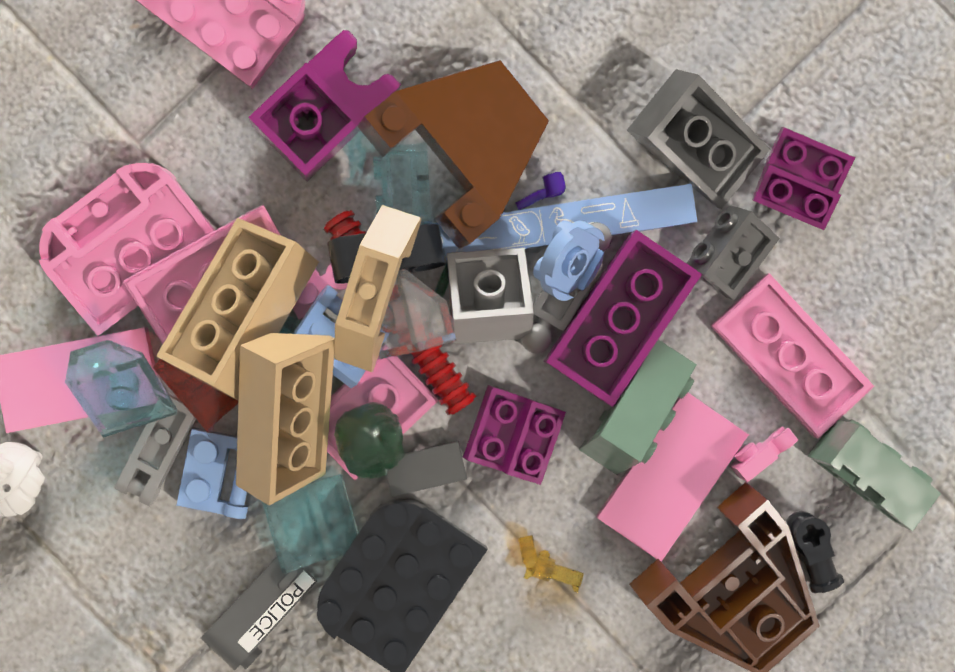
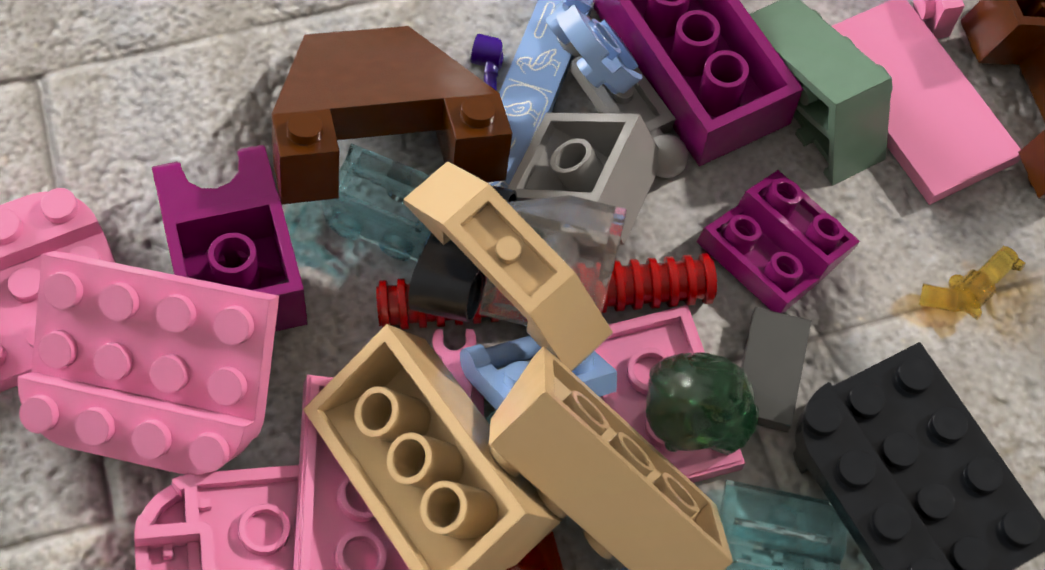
camera: 65 degrees left, 25 degrees down
(212, 112) = (147, 364): none -> bright pink plate

